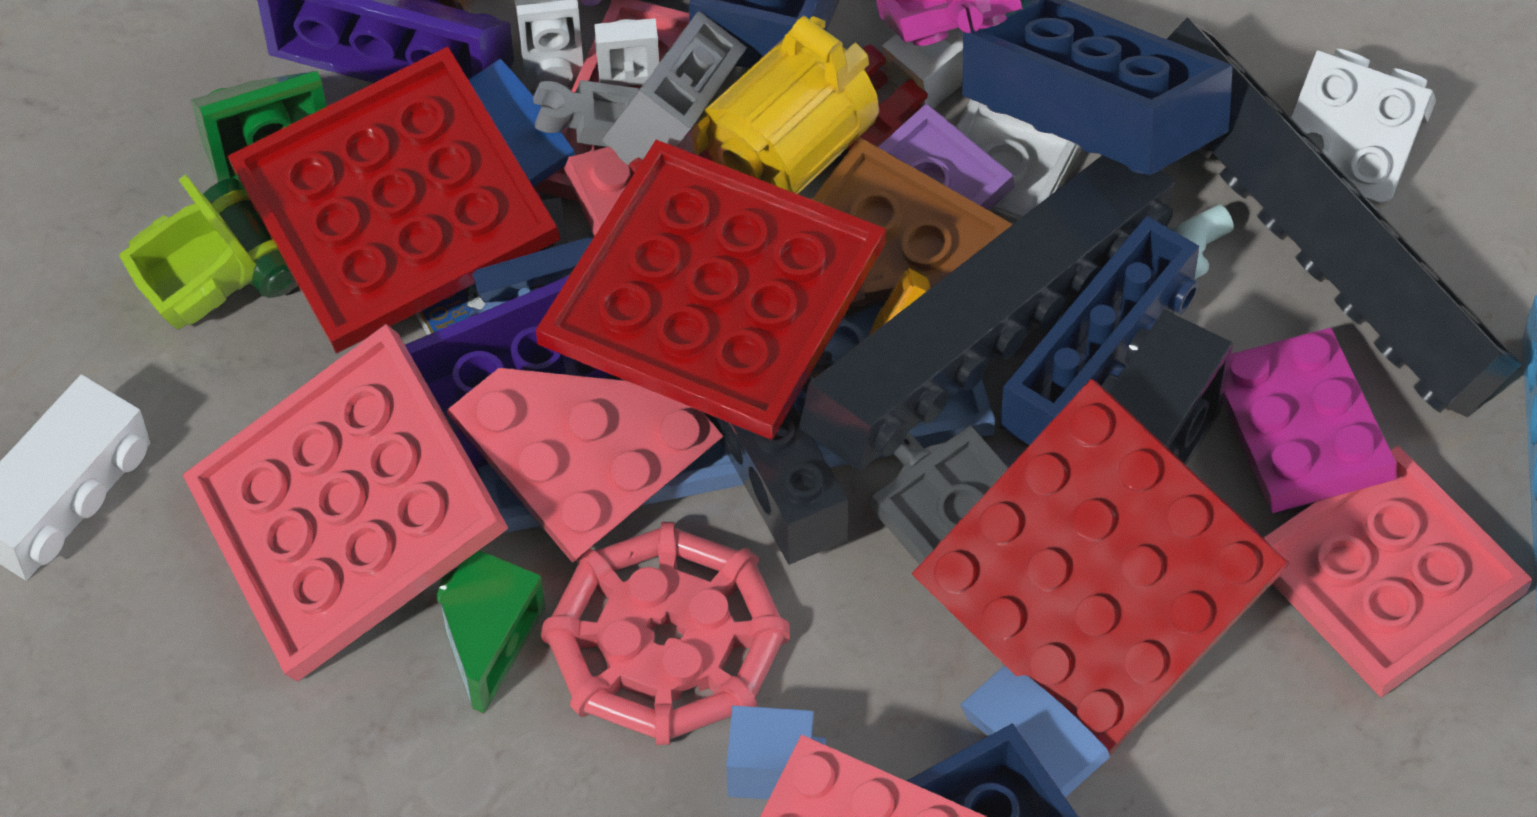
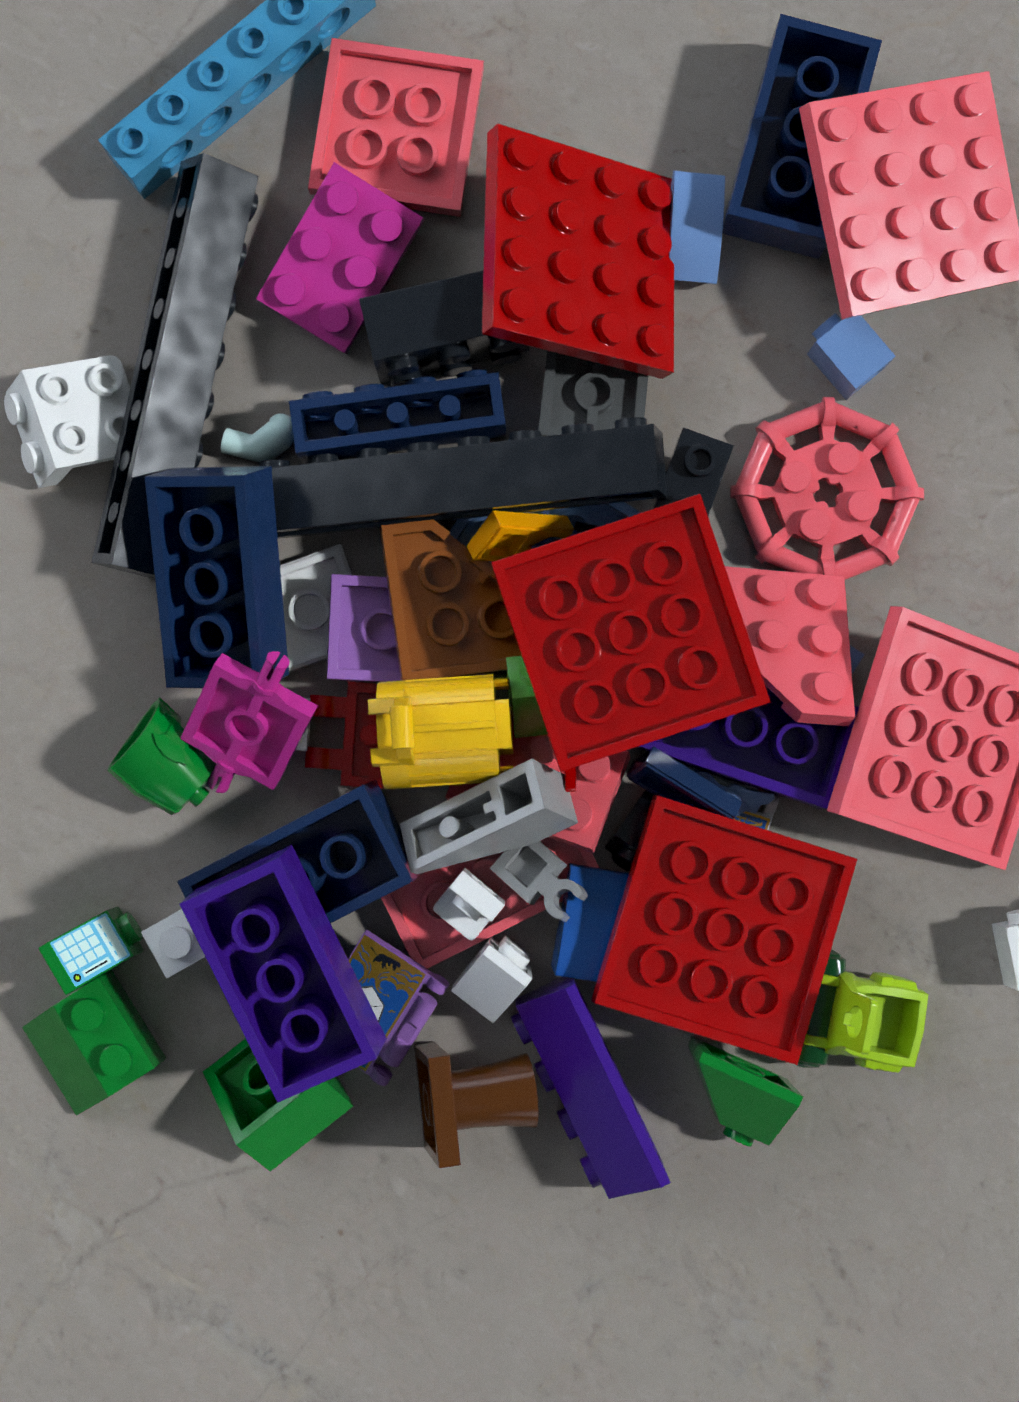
camera: 135 degrees left, 30 degrees up
(487, 619) = (930, 587): green slope -> none

